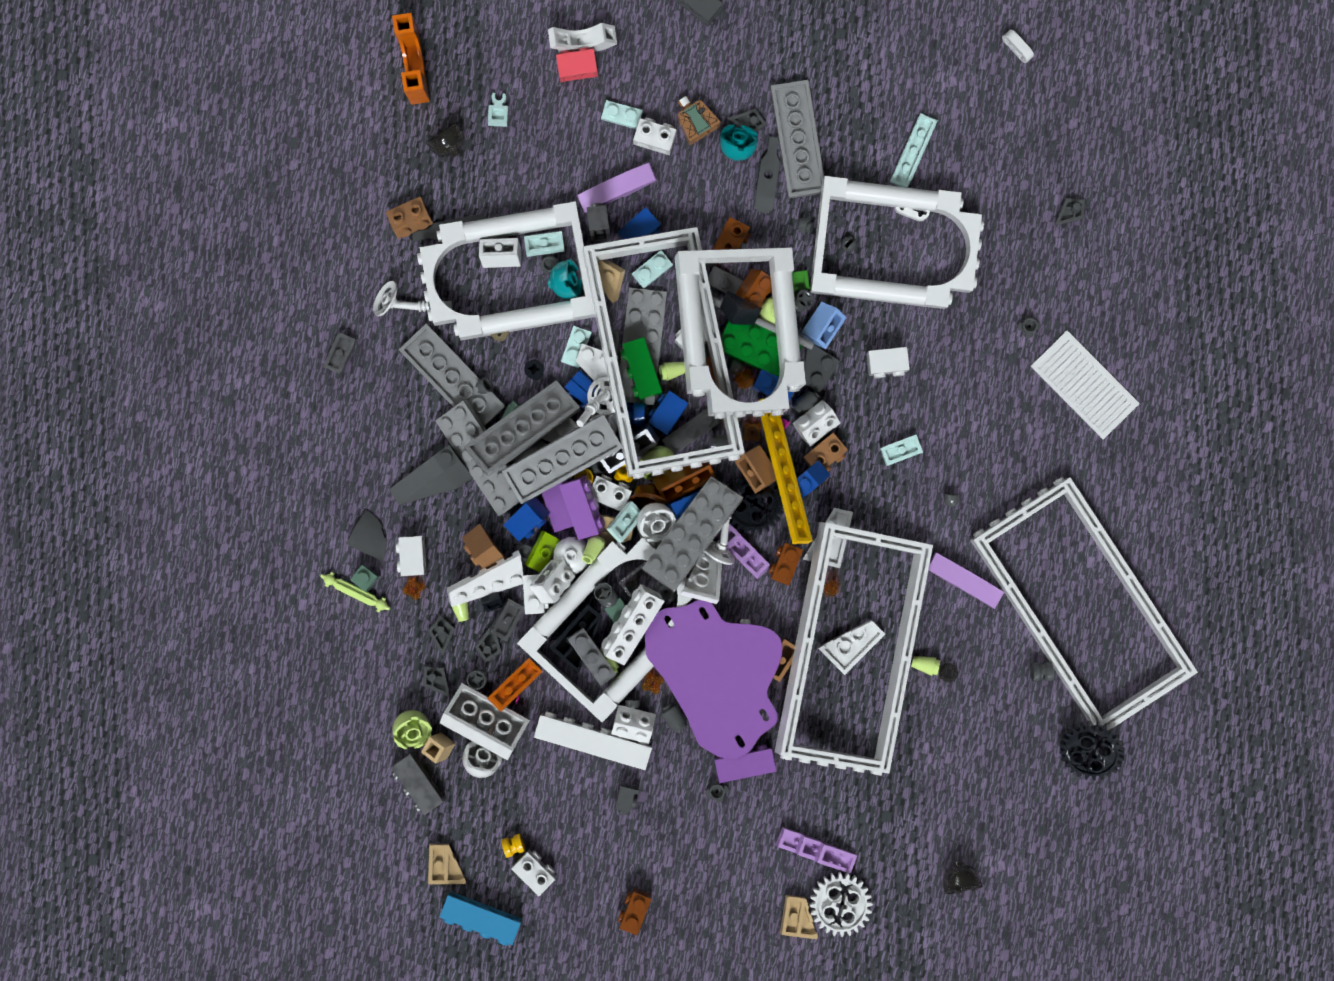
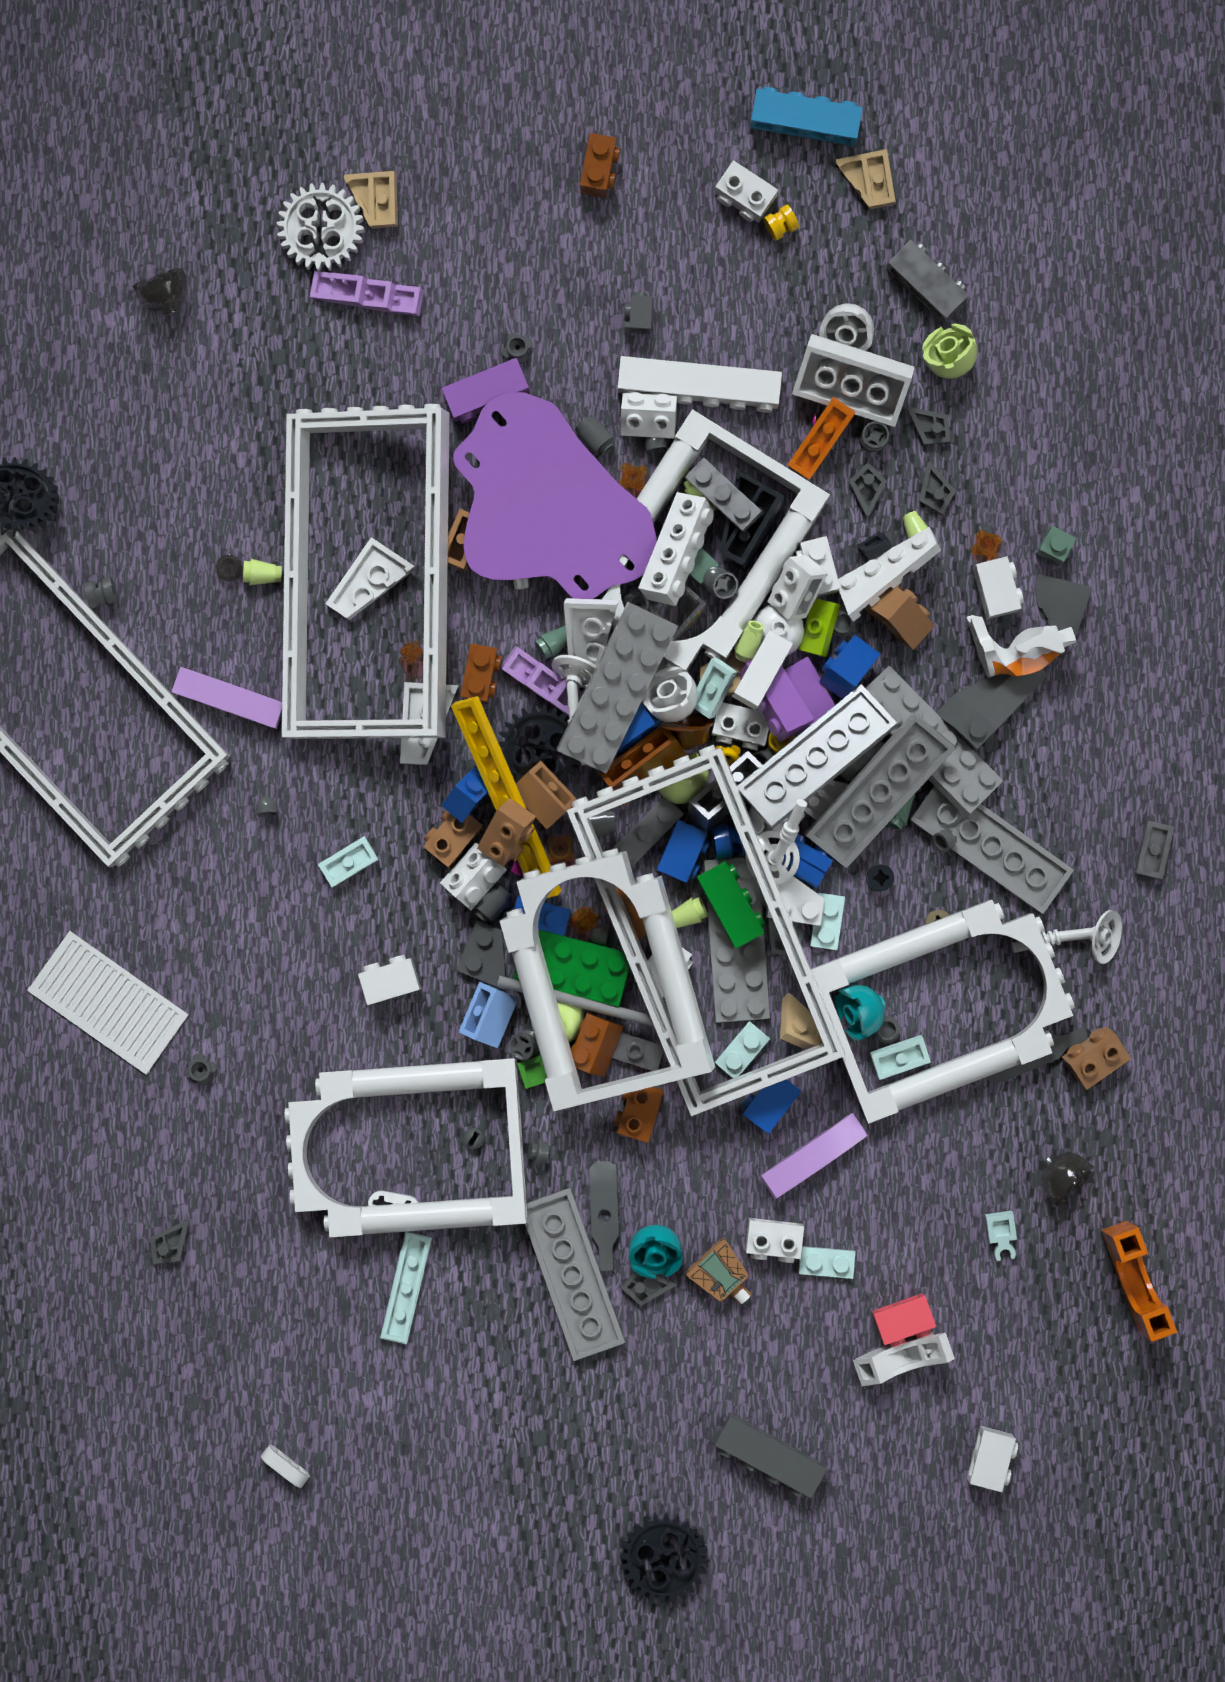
camera: 175 degrees right, 0 degrees up
(355, 592) = (1066, 524): yellowish green wheel -> none
(401, 505) = (1026, 654): none -> white hips
(438, 747) = (909, 334): tan brick -> none
(500, 252) = (959, 1031): white brick -> none
(507, 619) = (849, 525): flat silver plate -> none
(588, 526) = (762, 670): none -> white tile
(598, 222) = (830, 1097): flat silver brick -> none
(731, 576) = (551, 643): none -> sand green cone
(739, 310) = (610, 1010): black slope -> none
(788, 446) = (506, 833): none -> medium nougat brick

